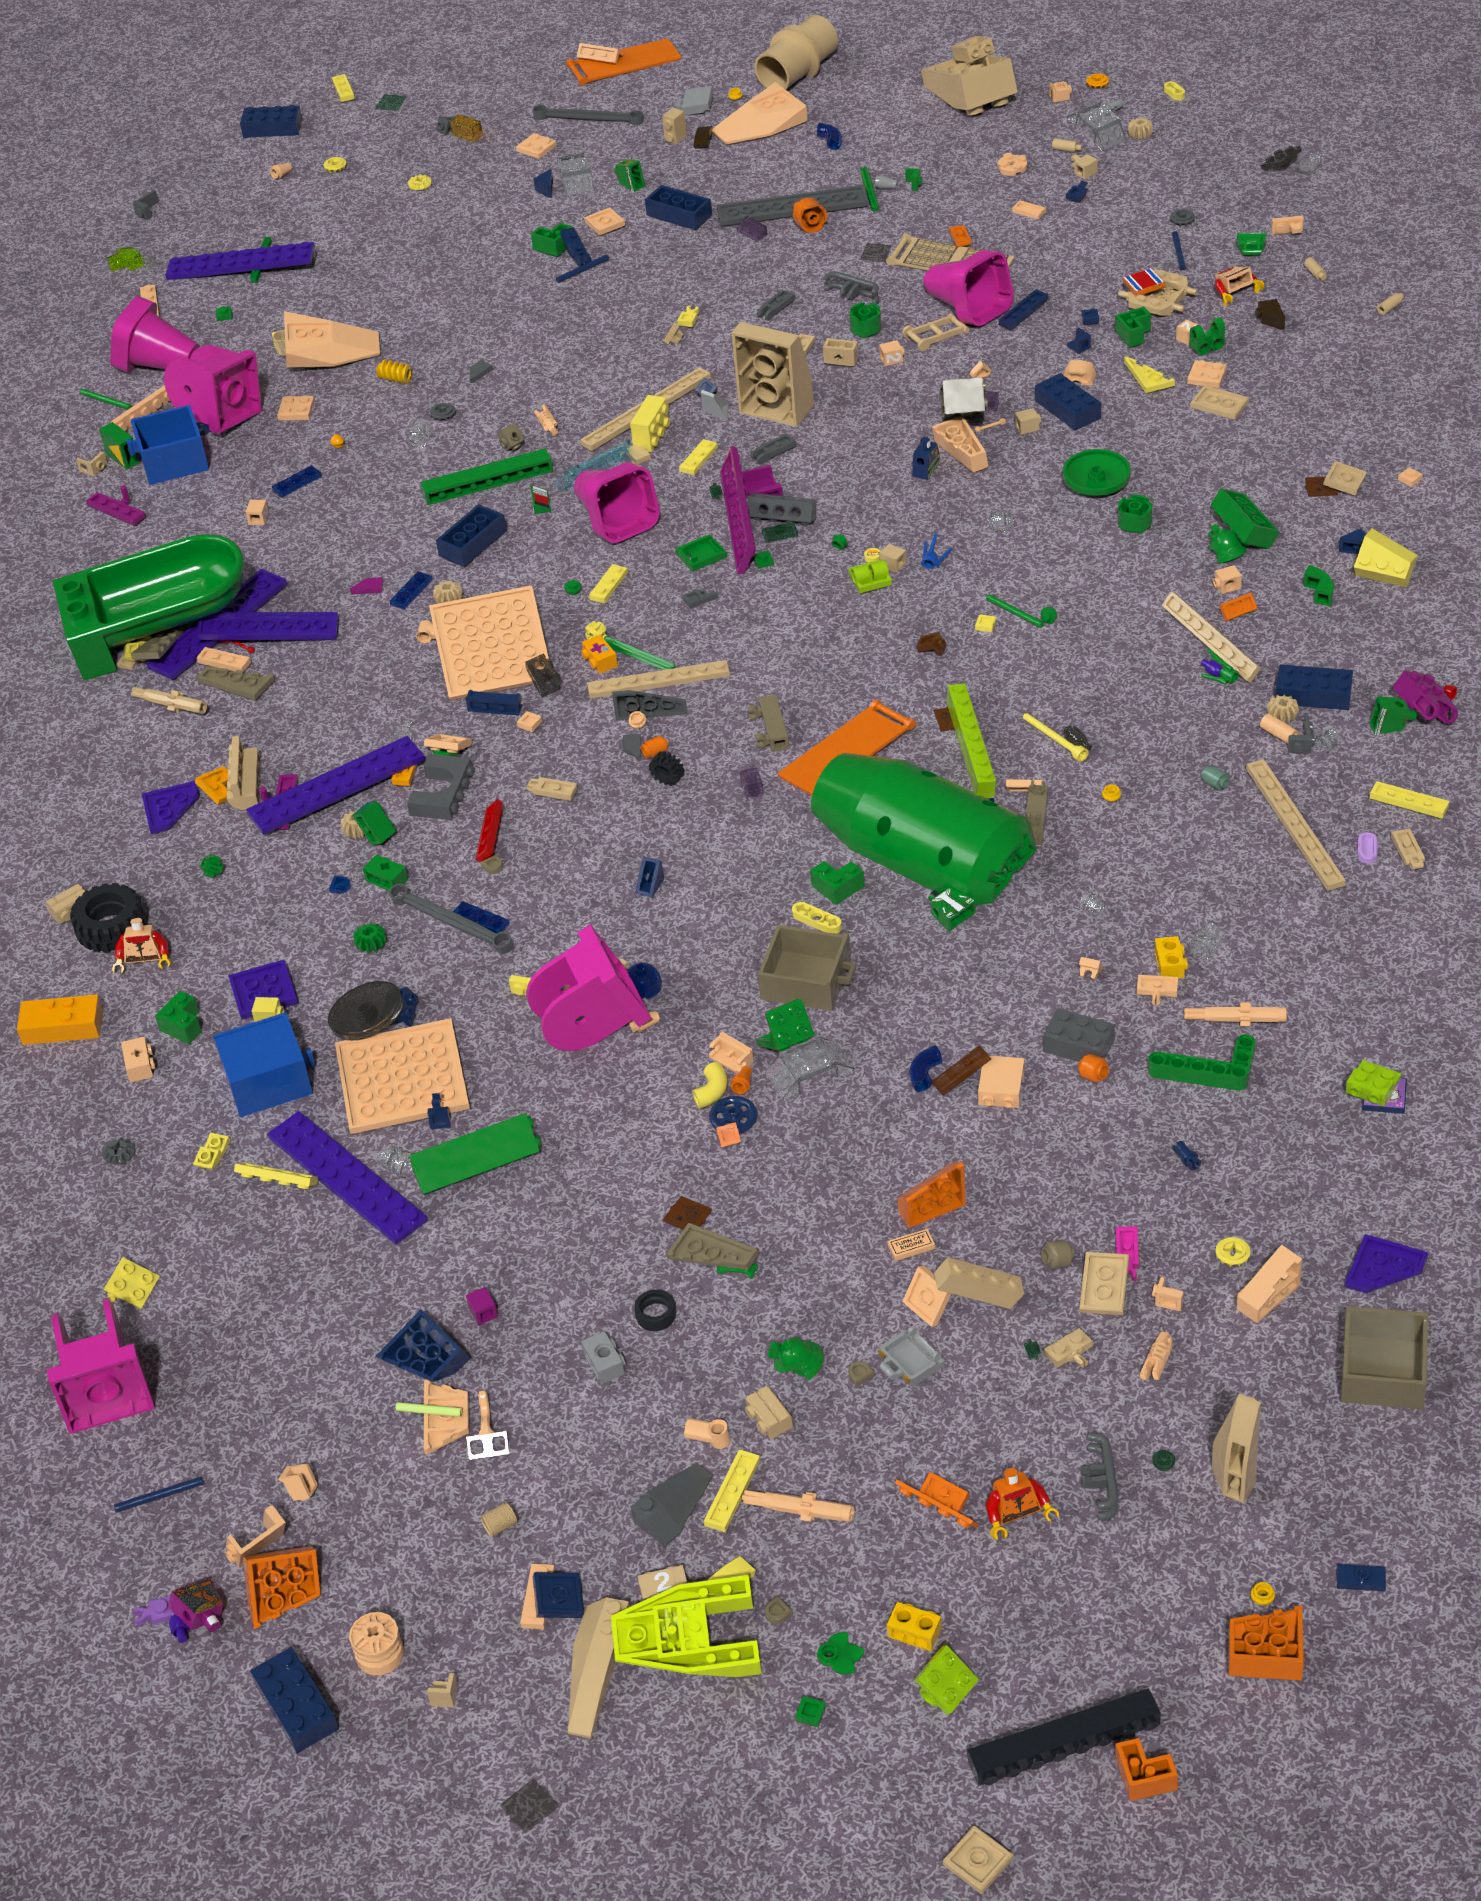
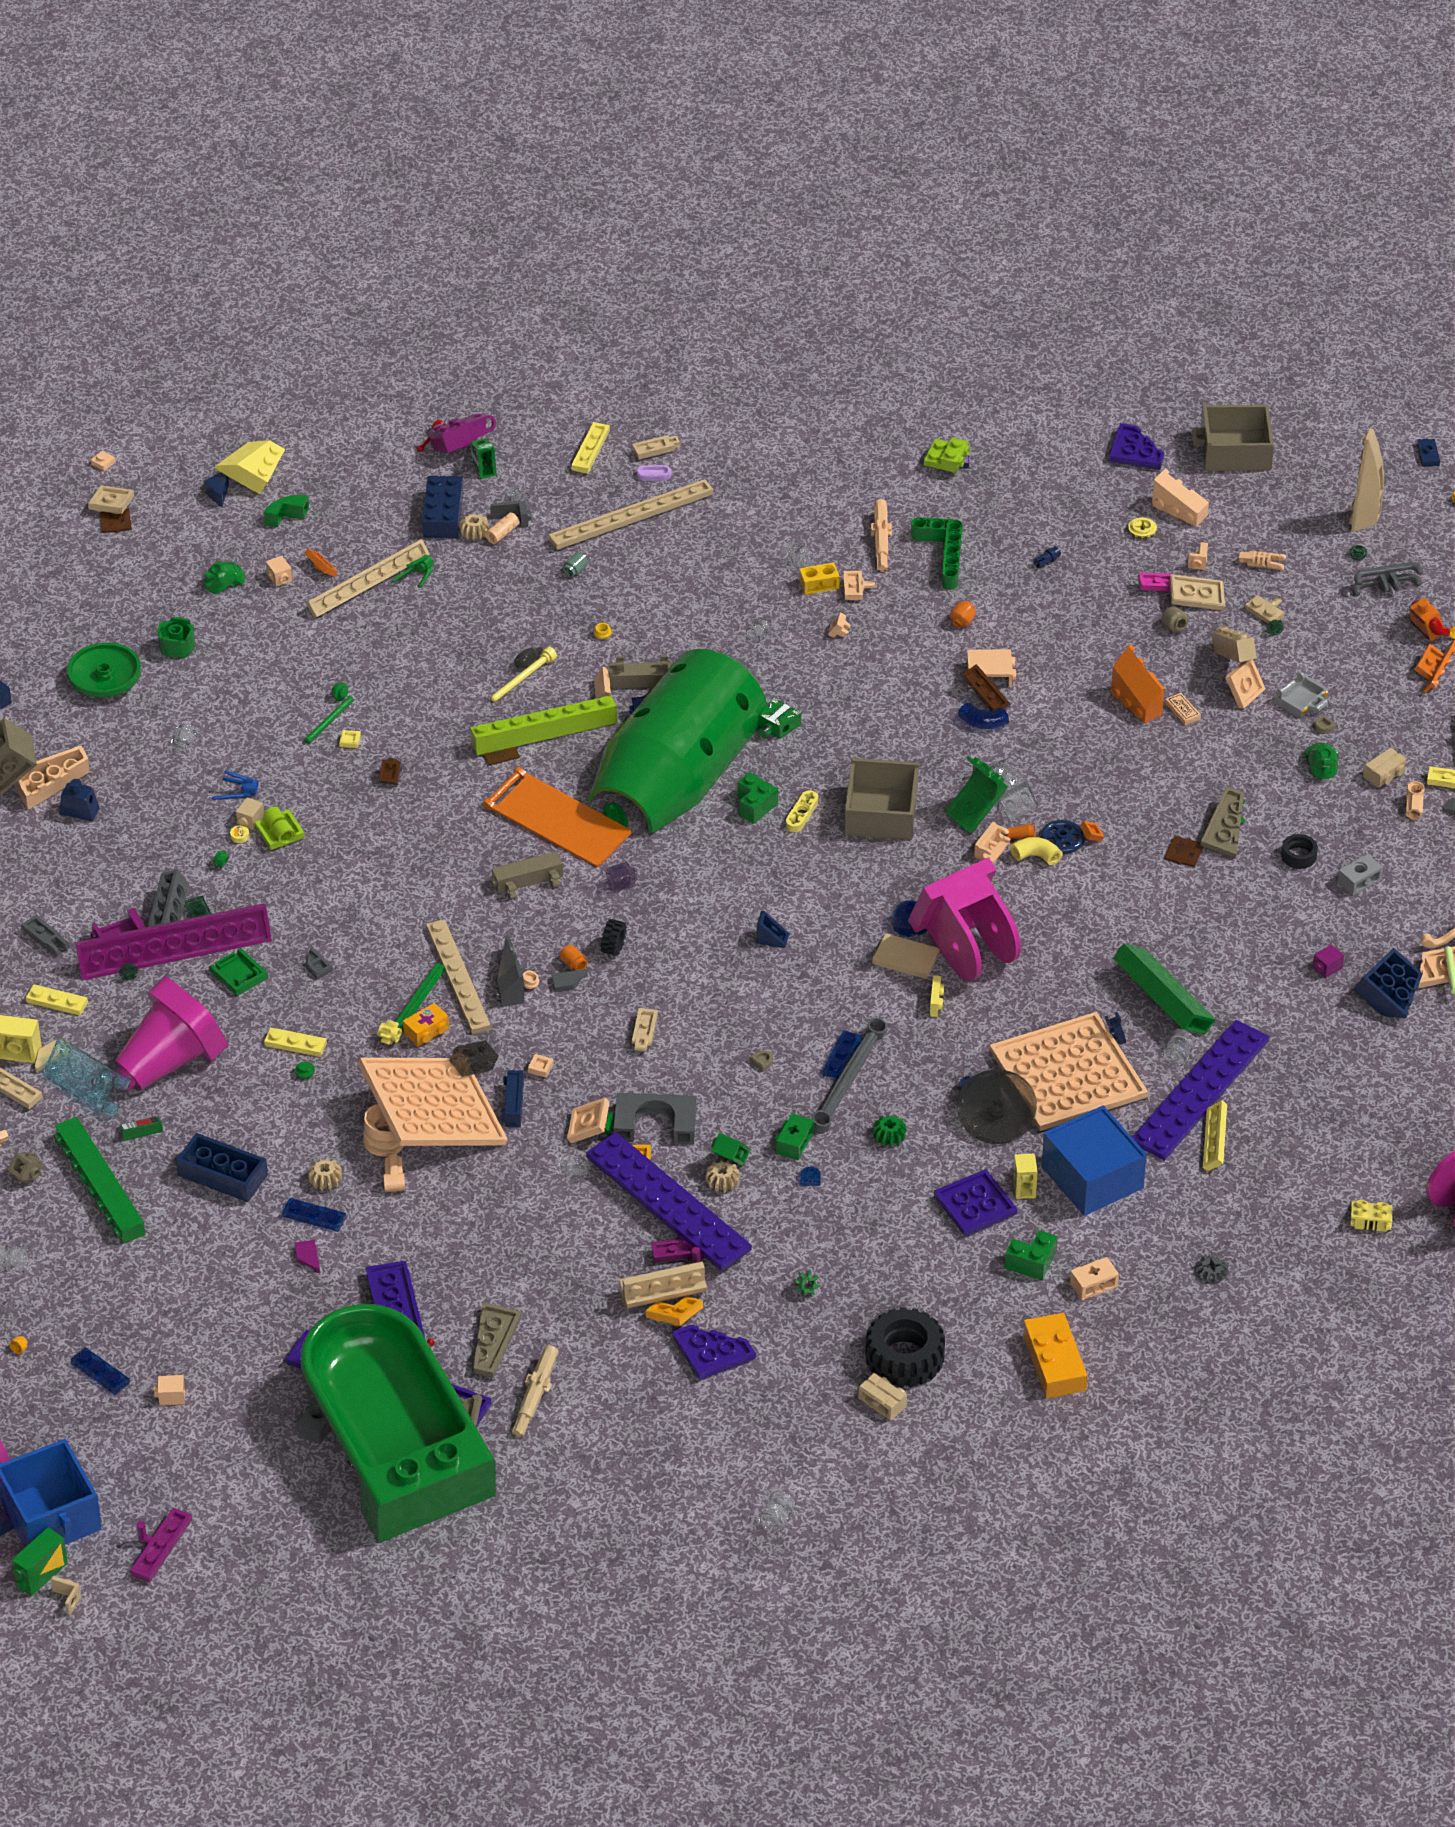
camera: 105 degrees left, 0 degrees up
(141, 944) = (939, 1309): torso -> none
(211, 1154) = (1201, 1196): light yellow slope -> none
(223, 659) = (457, 1356): light nougat plate -> none
(489, 831) = (717, 1066): red plate -> none
(1077, 1035) = (929, 624): dark grey brick -> none
(1212, 667) = (413, 574): dark purple cylinder -> none
(1244, 518) = (190, 556): green brick -> none

